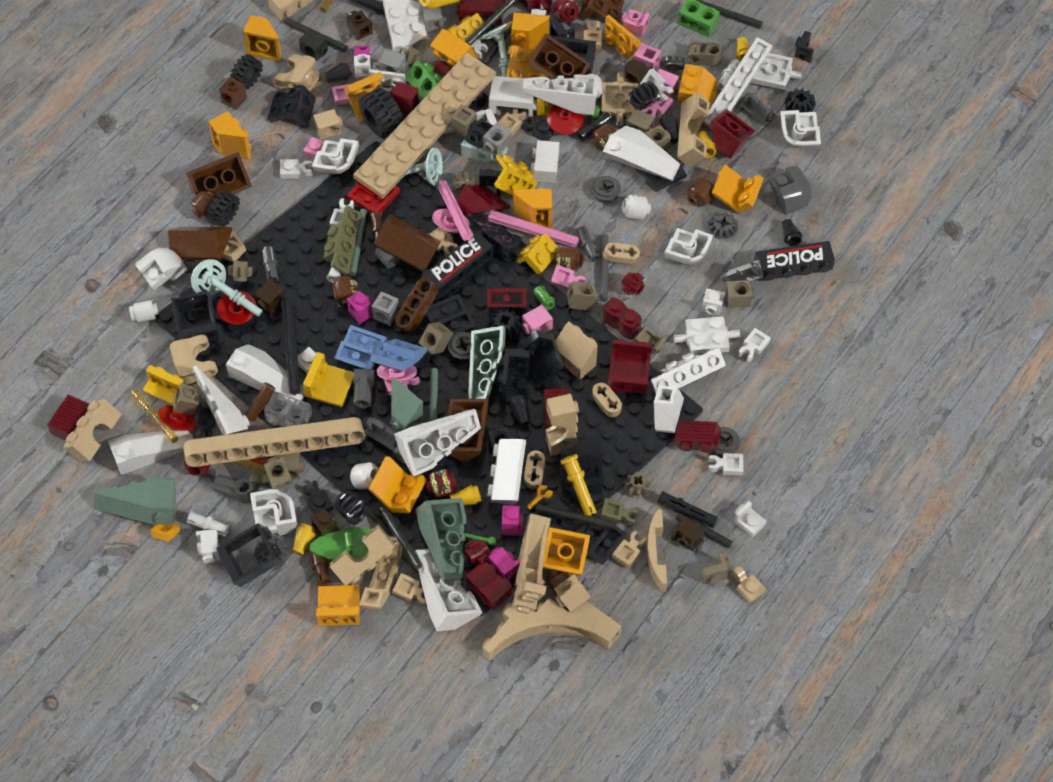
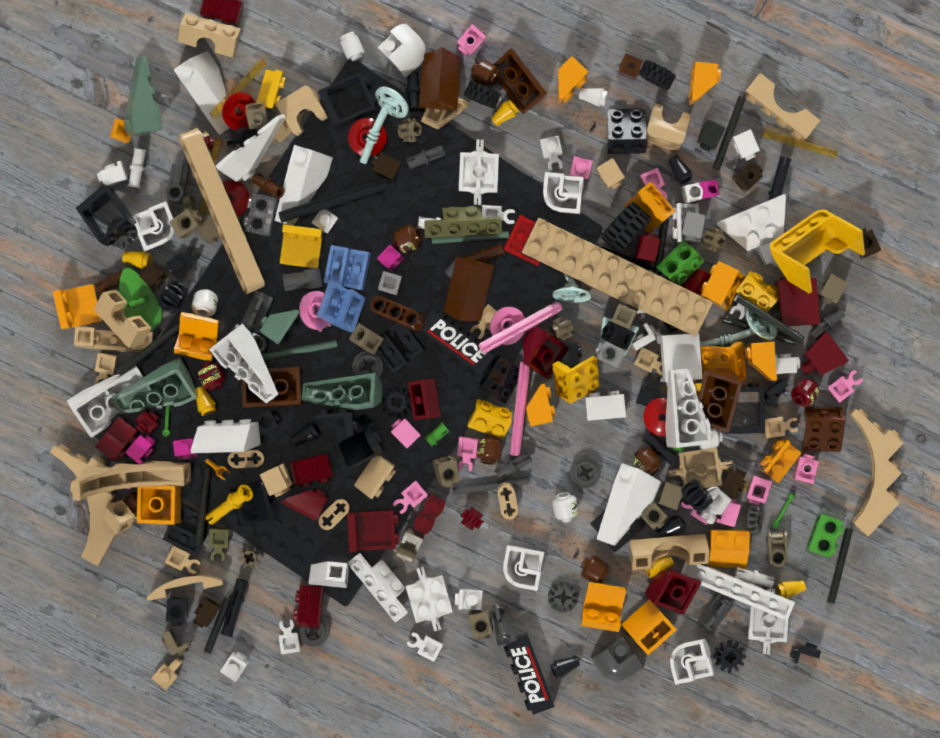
camera: 80 degrees right, 30 degrees up
(168, 212) = (477, 35): none -> bright pink brick
(246, 197) = (505, 112): none -> yellow cone
(253, 124) = (595, 96): none -> white cone
(297, 223) = (478, 172): none -> white plate
(330, 21) = (745, 145): none -> white brick
(592, 414) = (307, 503): none -> dark red slope
(601, 327) = (412, 495): none -> bright pink plate
(658, 38) = (775, 524): none -> bright green hinge
(677, 555) = (180, 602): none -> black brick
(763, 156) = (648, 627): none -> light orange slope

